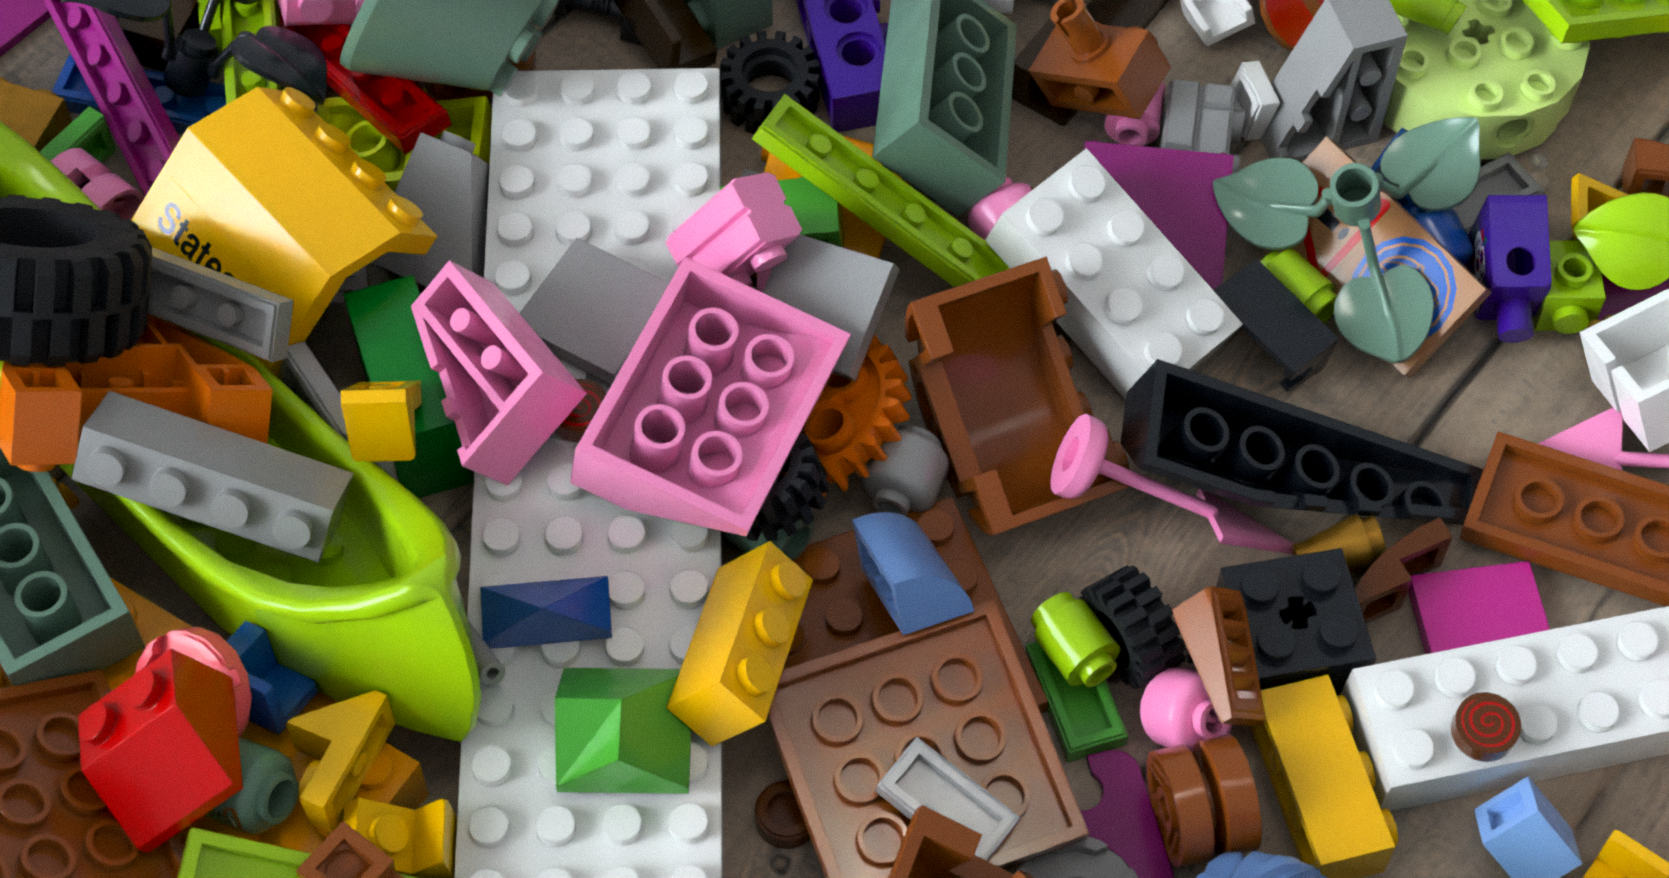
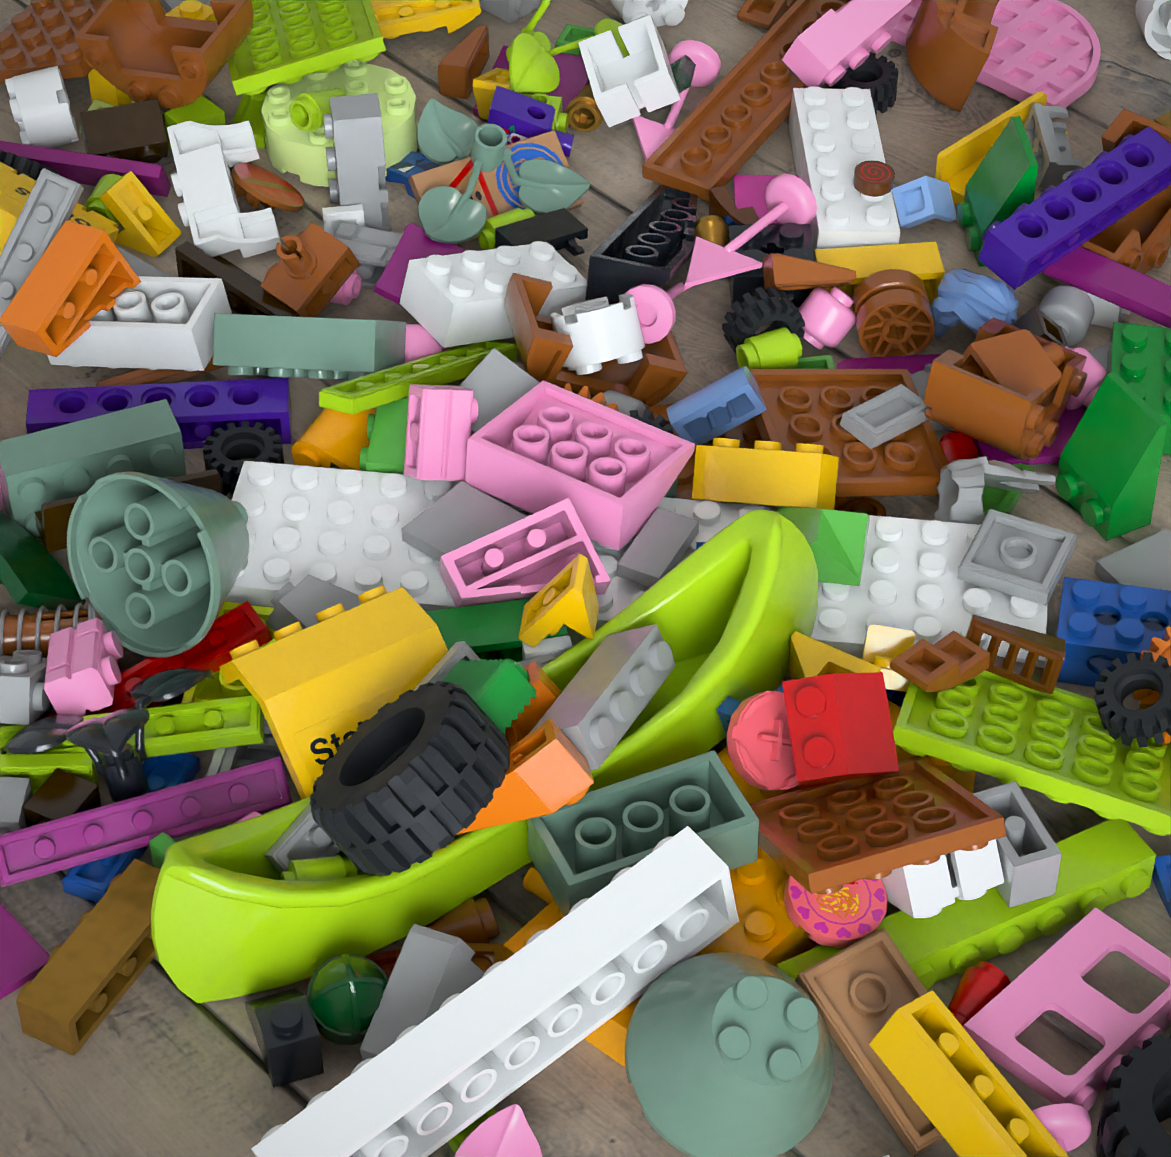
camera: 80 degrees left, 15 degrees down
(182, 335) = (495, 686): none -> green brick
(587, 531) = (657, 547): none -> light grey tile
(1016, 401) = (600, 333): none -> white brick
(1237, 532) = (787, 201): none -> bright pink piece

